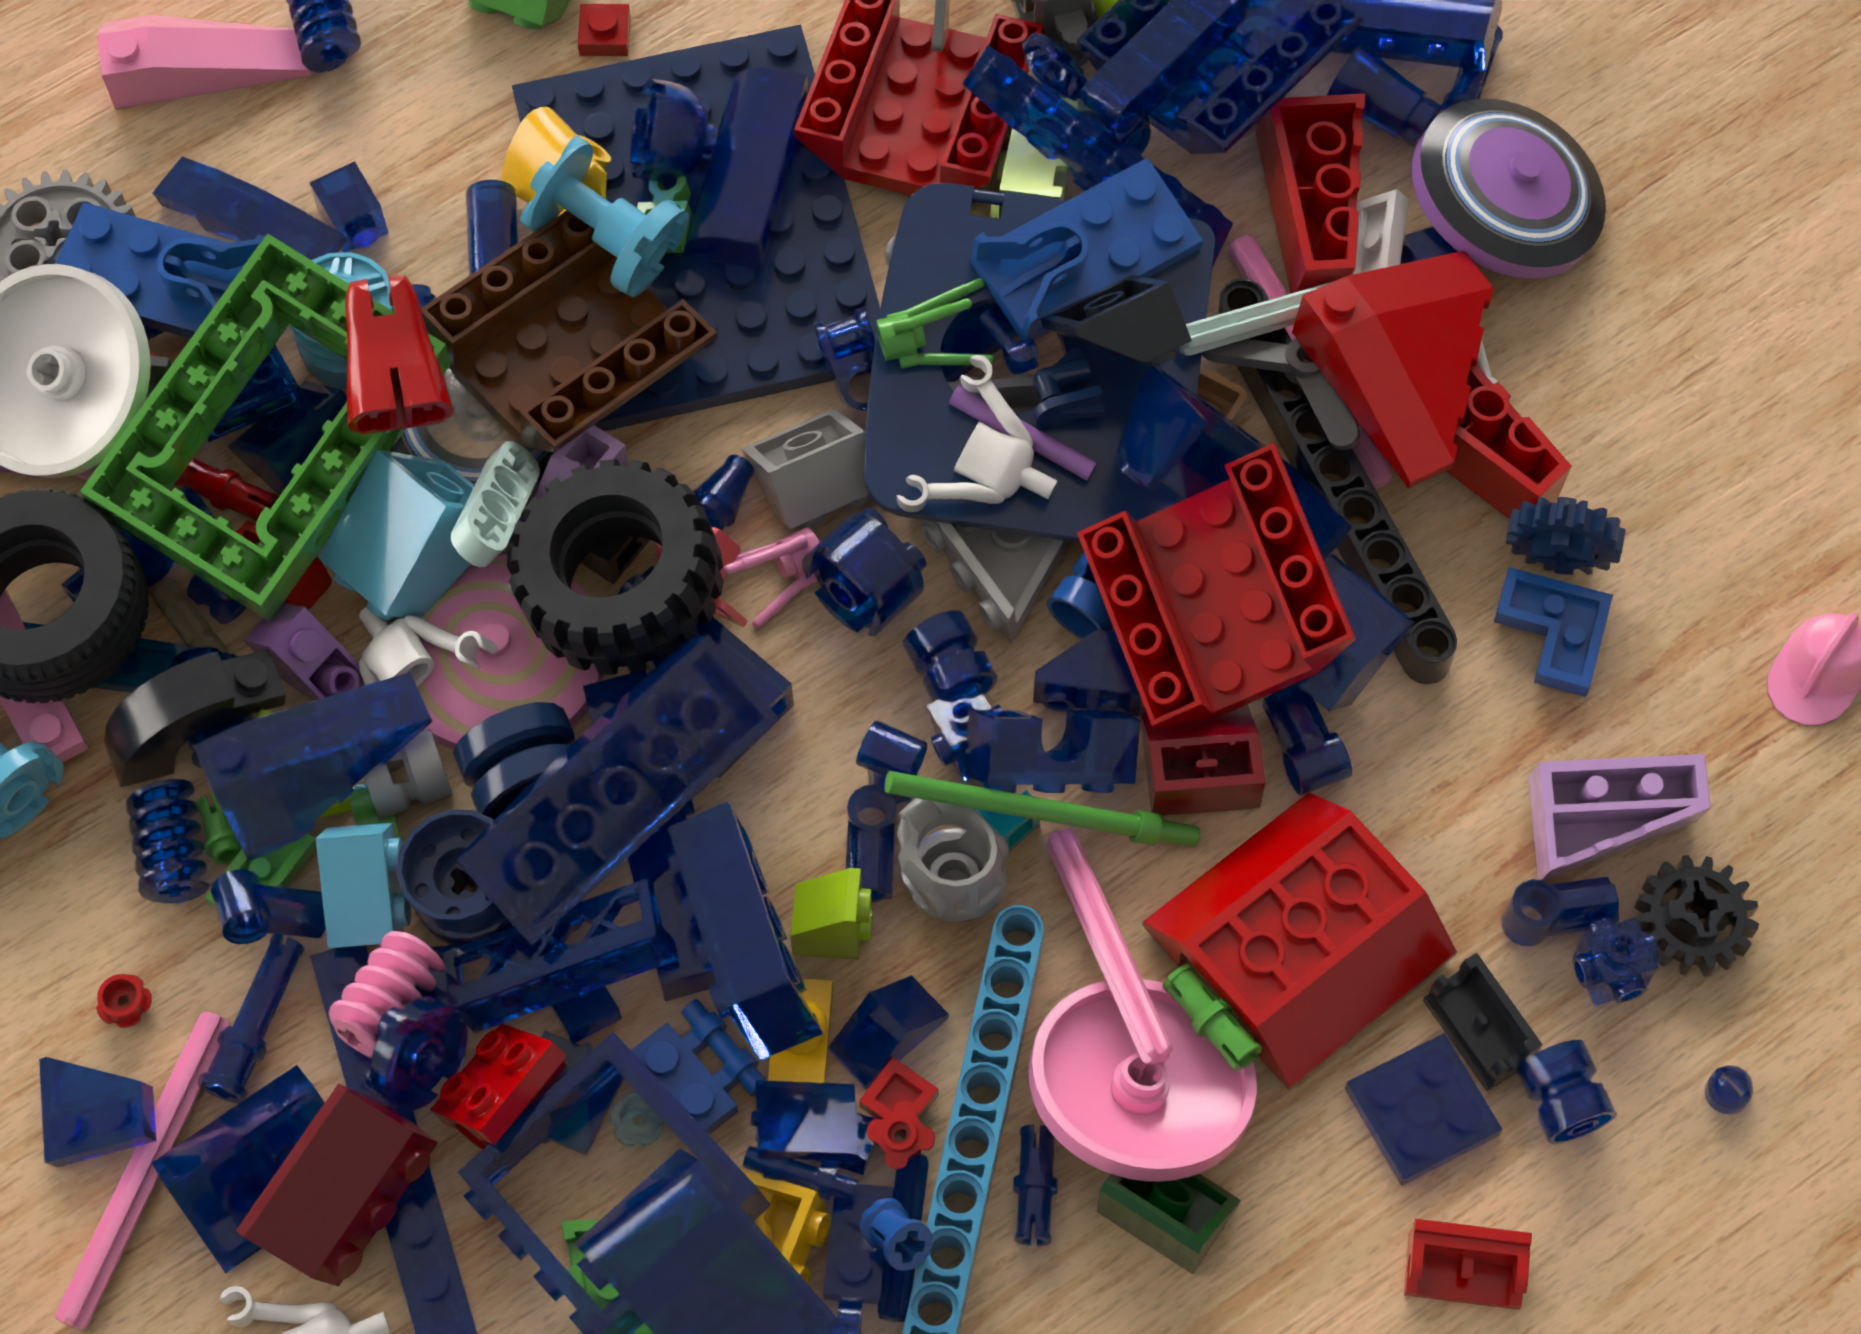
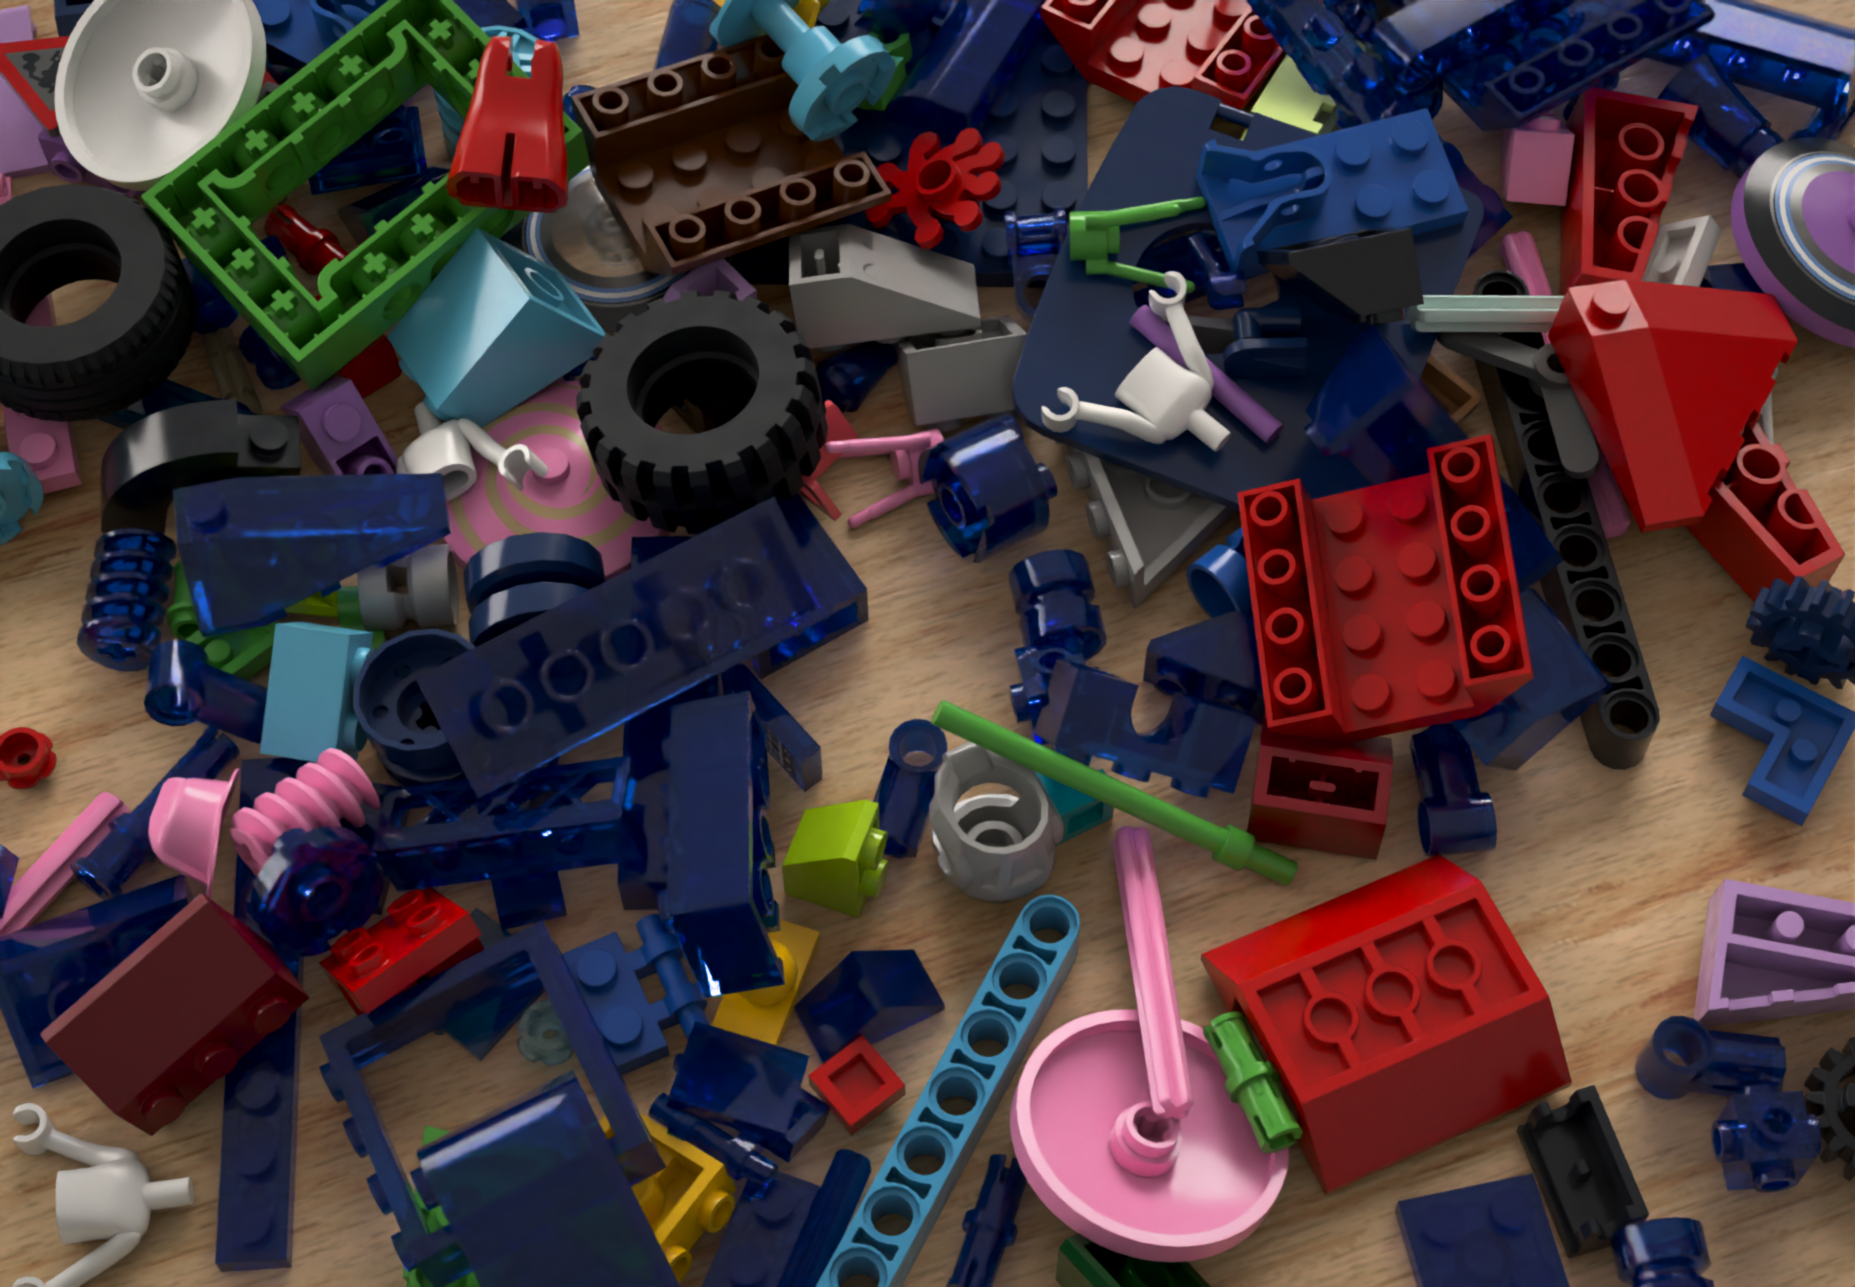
camera: 15 degrees right, 5 degrees down
(293, 1028) = (189, 823): none -> bright pink piece
(495, 504) = (586, 315): light aqua beam -> none
(725, 416) = (875, 288): none -> light grey slope
(754, 310) = (941, 185): none -> red animal
(763, 828) = (784, 735): none -> clear blue tile
(890, 750) = (958, 681): clear blue piece -> none
(893, 1222) = (804, 1243): blue bush -> none
(917, 1136) = (859, 1137): red plate -> none
(1244, 174) = (1537, 161): none -> bright pink slope

